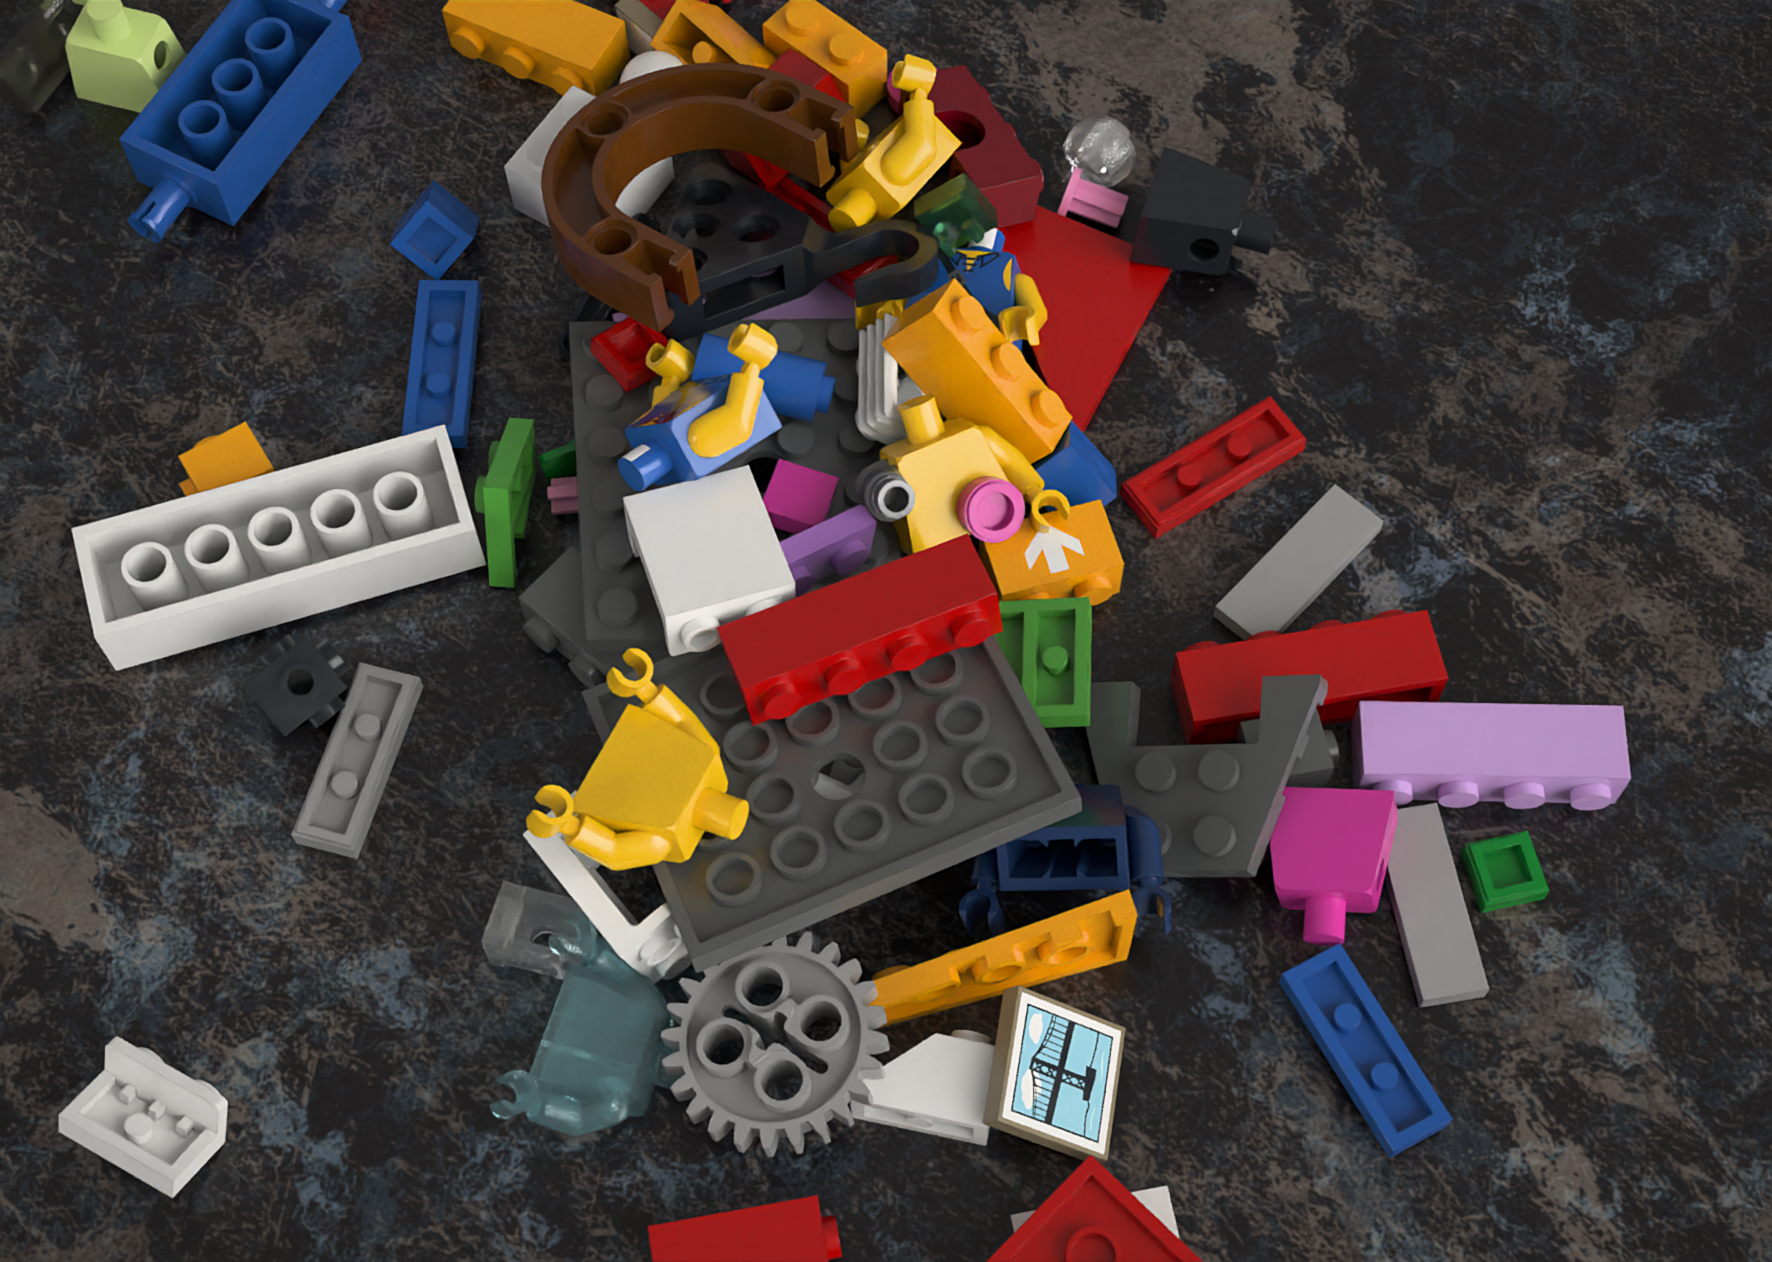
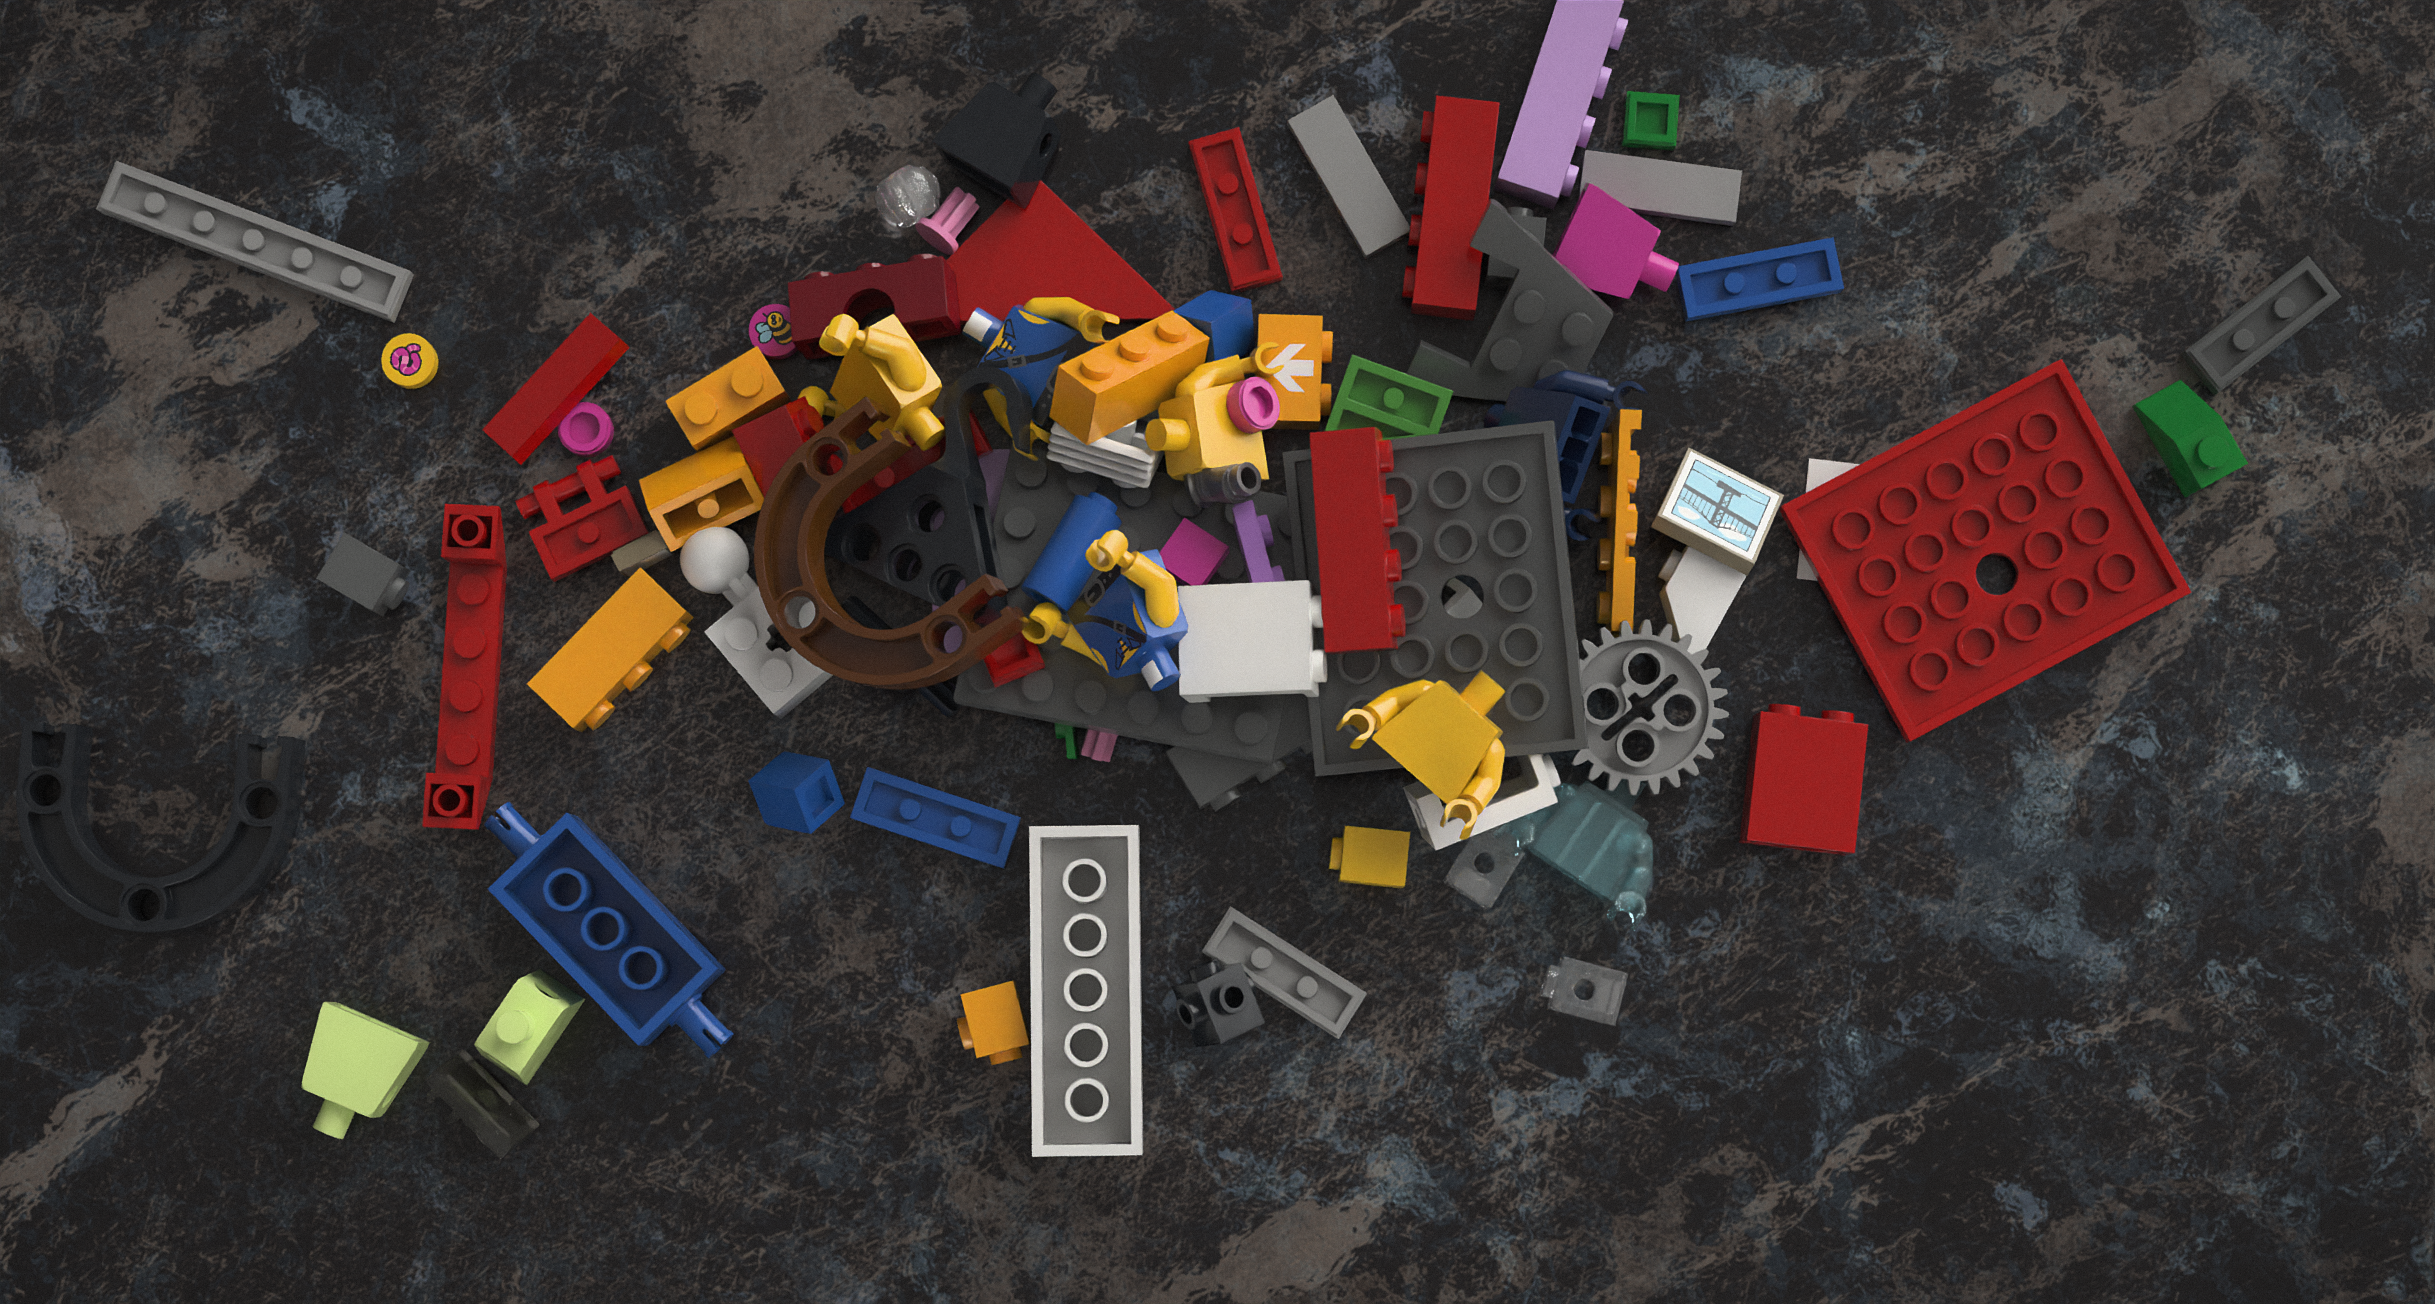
camera: 75 degrees left, 20 degrees up
(147, 1118) = (1543, 1194): white bracket -> none
(418, 1118) = (1606, 997): none -> clear brick
(505, 797) = (1371, 856): none -> yellow brick
(506, 497) = (1099, 796): bright green wing -> none
(956, 214) = (958, 342): clear green tile -> none

